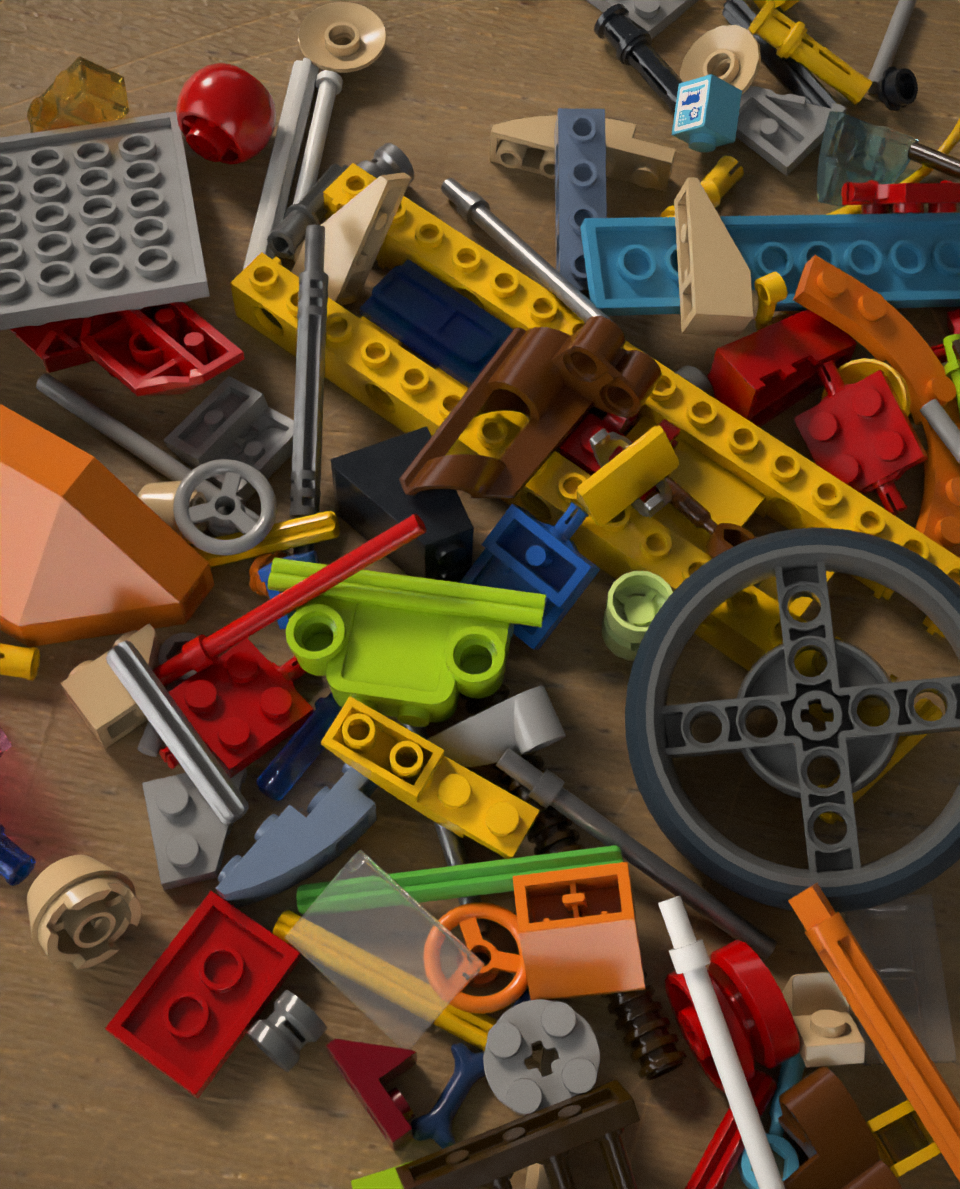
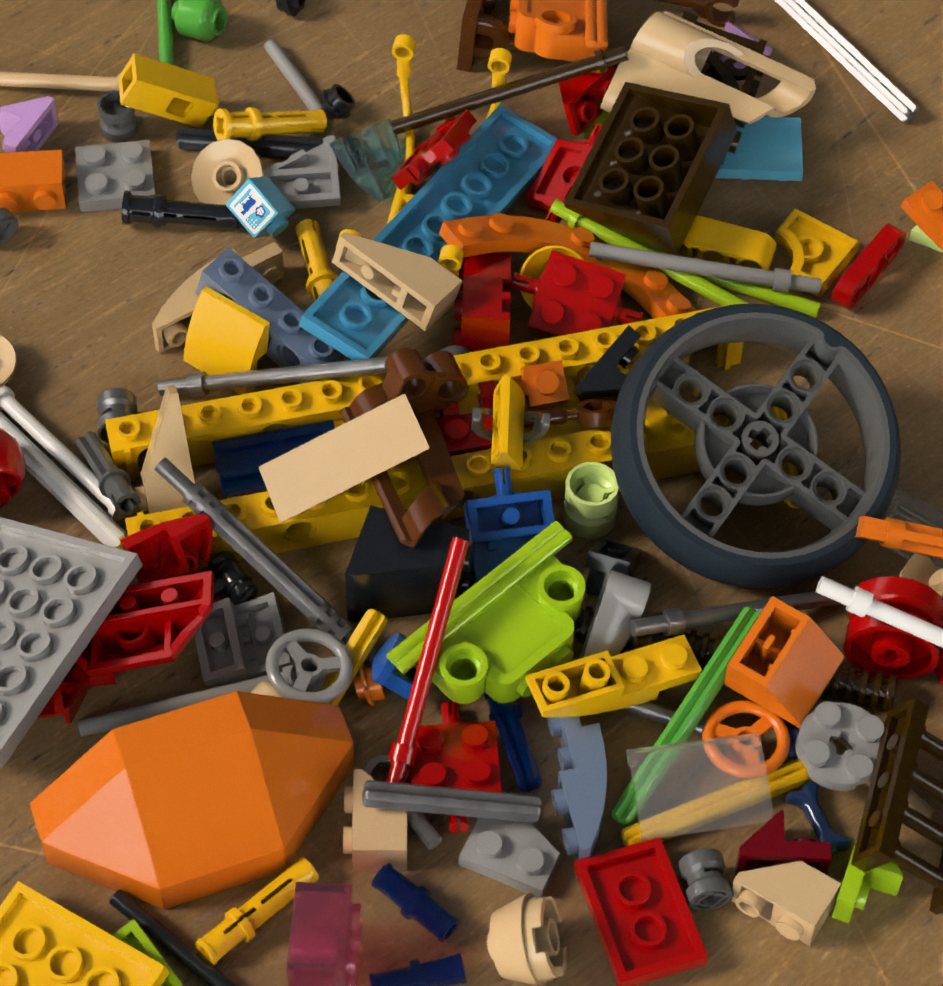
camera: 50 degrees left, 10 degrees down
(64, 780) = (415, 902): none -> clear blue pin
(251, 310) = (171, 547): none -> red brick
(280, 381) = (231, 578): none -> black piece
(330, 1130) = (787, 896): none -> tan slope
(461, 367) = (343, 457): none -> tan sticker
(530, 186) = (225, 337): none -> yellow slope
(583, 687) = (607, 556): none -> black slope
(718, 475) = (544, 384): none -> orange plate
(793, 513) = (604, 376): none -> black slope

